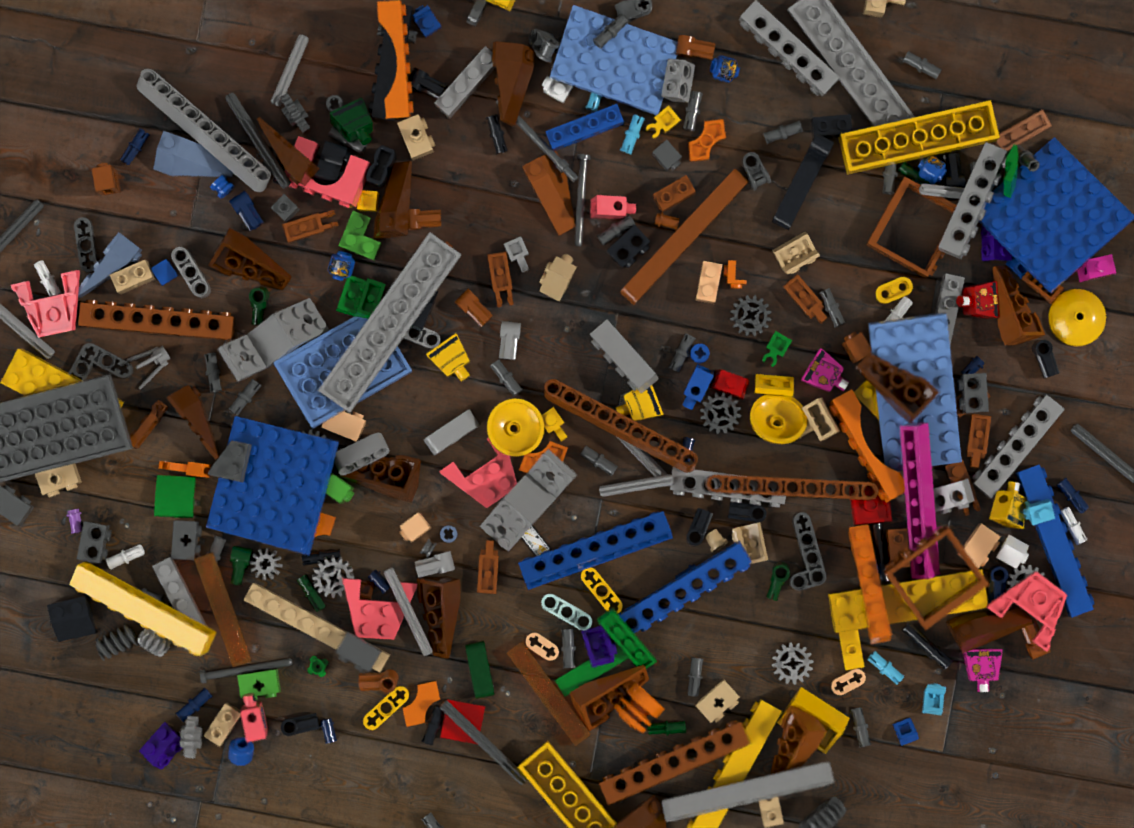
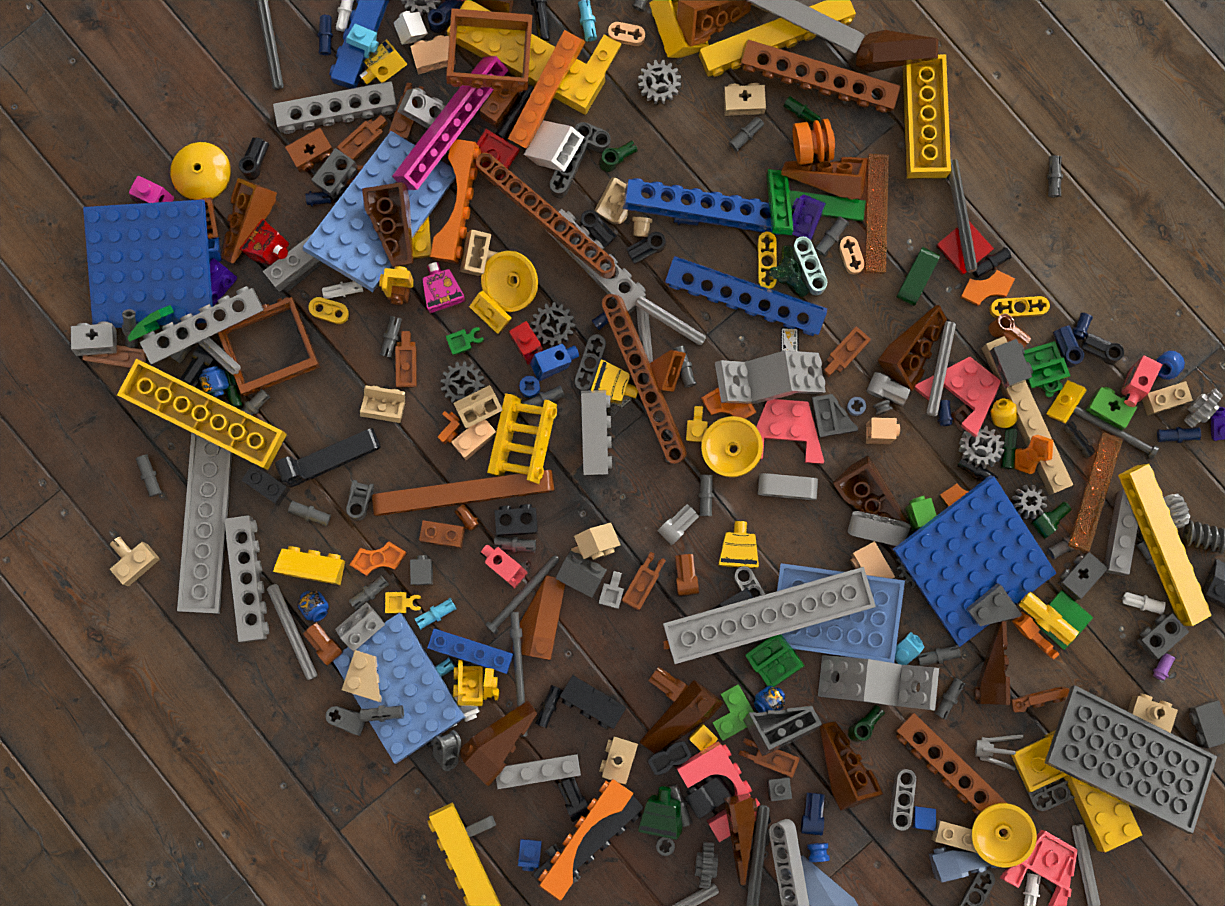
camera: 145 degrees left, 5 degrees down
(91, 292) = (1004, 849): none -> yellow dish
(119, 368) = (1032, 766): none -> yellow plate
(186, 486) = (1048, 618): none -> yellow piece
(264, 642) = (1079, 439): none -> black axle
(270, 384) = (908, 649): none -> medium azure bracket
(289, 602) = (1038, 450): none -> orange tile
(296, 662) = (1066, 401): none -> yellow plate
(319, 249) = (779, 728): none -> dark grey wedge
(329, 707) = (1068, 344): none -> dark blue piece
(334, 676) = (1046, 365): none -> green slope
(336, 614) = (1004, 413): none -> yellow head
(460, 510) = (831, 417): none -> dark grey wing
(467, 161) = (592, 703): none -> black wedge
(549, 245) = (581, 574): none -> dark grey brick
(550, 114) = (490, 685): none -> yellow plate
(565, 103) = (470, 685): none -> yellow bracket
(578, 594) = (789, 272): none -> clear green bush
(608, 446) = (667, 369): none -> dark orange slope
(645, 46) = (363, 676): none -> tan wing
(661, 396) = (589, 347): none -> dark grey beam
(690, 307) = (506, 428): none -> yellow fence
(723, 305) = (478, 406): none -> tan brick
(724, 39) = (292, 631): none -> light grey axle
(750, 94) = (310, 565): none -> yellow slope
(829, 546) = (554, 145): none -> white brick
(857, 349) = (395, 277): none -> yellow bracket
(1010, 408) = (299, 150): none -> dark orange brick
(1035, 132) = (103, 343): none -> light grey brick

